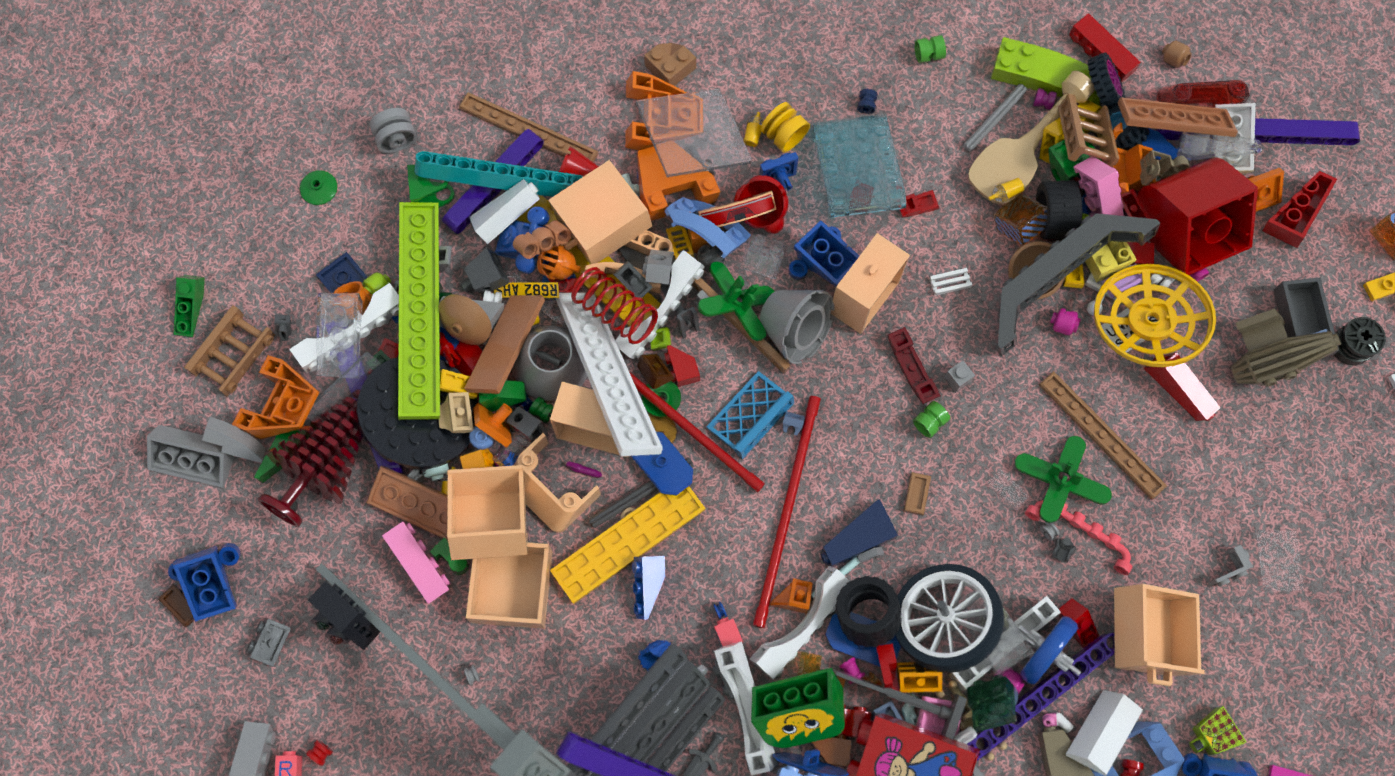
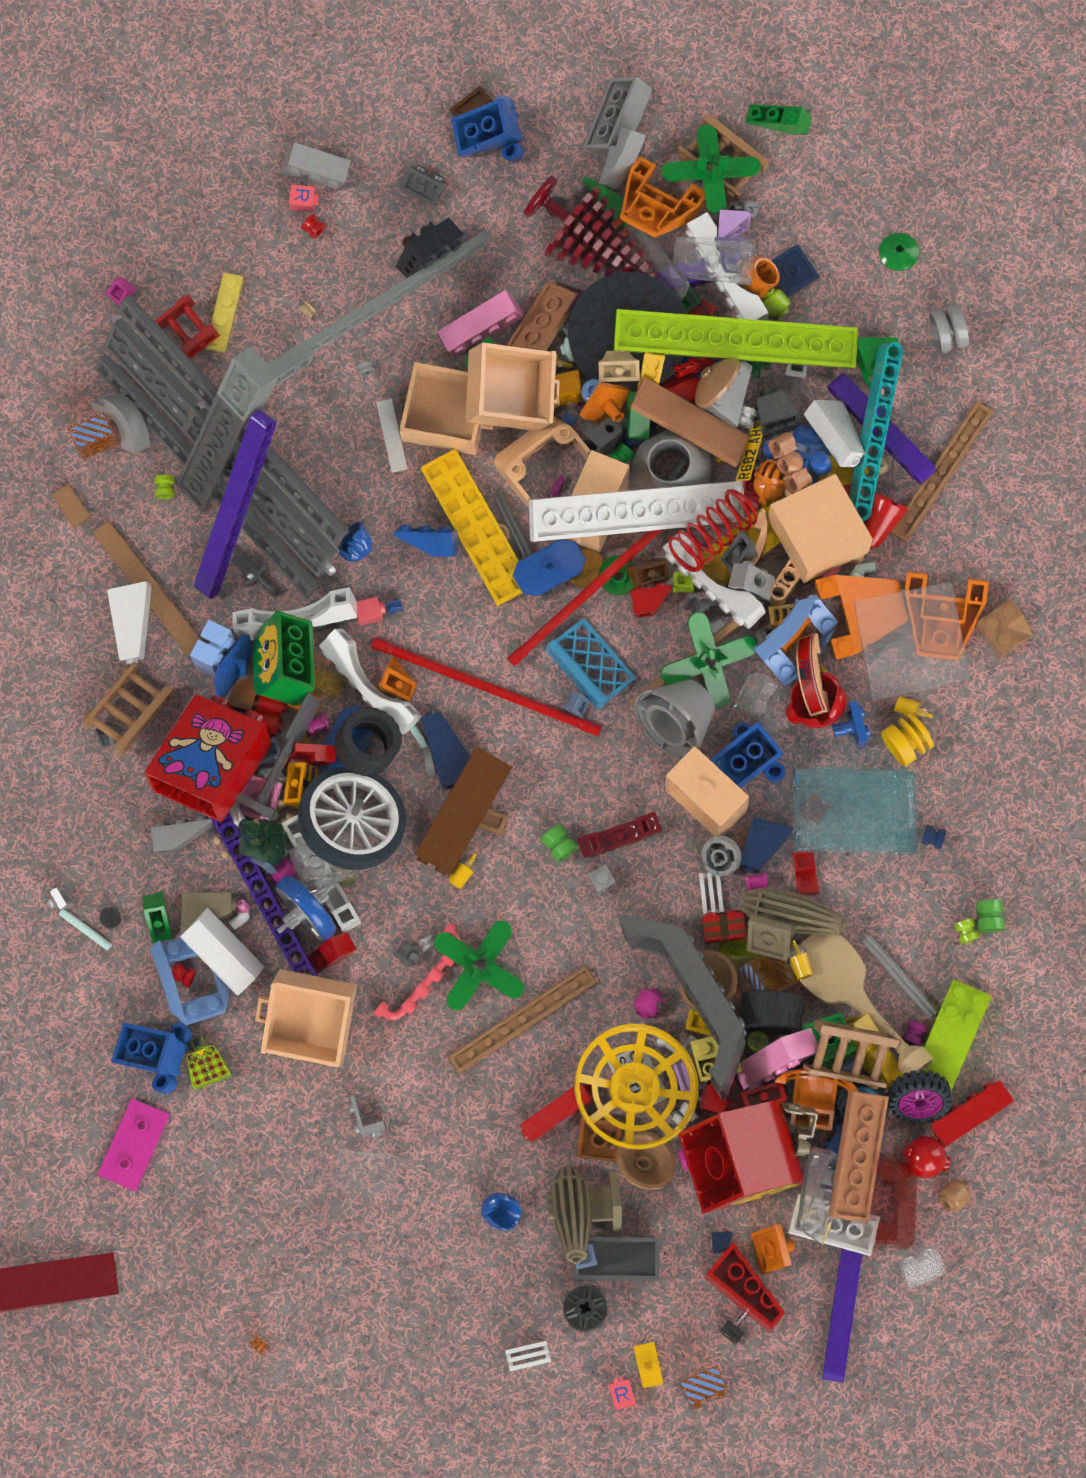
camera: 105 degrees right, 5 degrees up
(244, 366) = (713, 179): none -> green piece
(297, 329) = (733, 223): none -> lavender slope
(411, 746) = (307, 309): none -> tan piece
(539, 639) = (391, 435): none -> white sticker
(903, 237) = (762, 843): none -> dark blue slope
(919, 511) = (462, 811): none -> reddish brown brick
(920, 271) = (721, 855): none -> light grey cone
(934, 242) = (756, 881): none -> dark pink bush
(946, 67) = (966, 930): none -> lime wheel
(968, 211) = (781, 913): none -> dark tan piece
(973, 506) = (463, 871): none -> yellow piece
(982, 265) = (723, 927): none -> brick
(998, 250) = (736, 950): none -> clear neon green slope
(1152, 77) = (926, 1157): none -> red brick
(1207, 358) = (595, 1147): none -> dark orange slope
(1225, 299) = (657, 1162): none -> medium nougat dish
(1246, 68) = (921, 1269): none -> clear slope
(1262, 238) = (720, 1241): none -> dark blue tile
(1288, 428) = (501, 1211): none -> blue hair
(1336, 221) = (731, 1330): none -> pearl dark grey piece

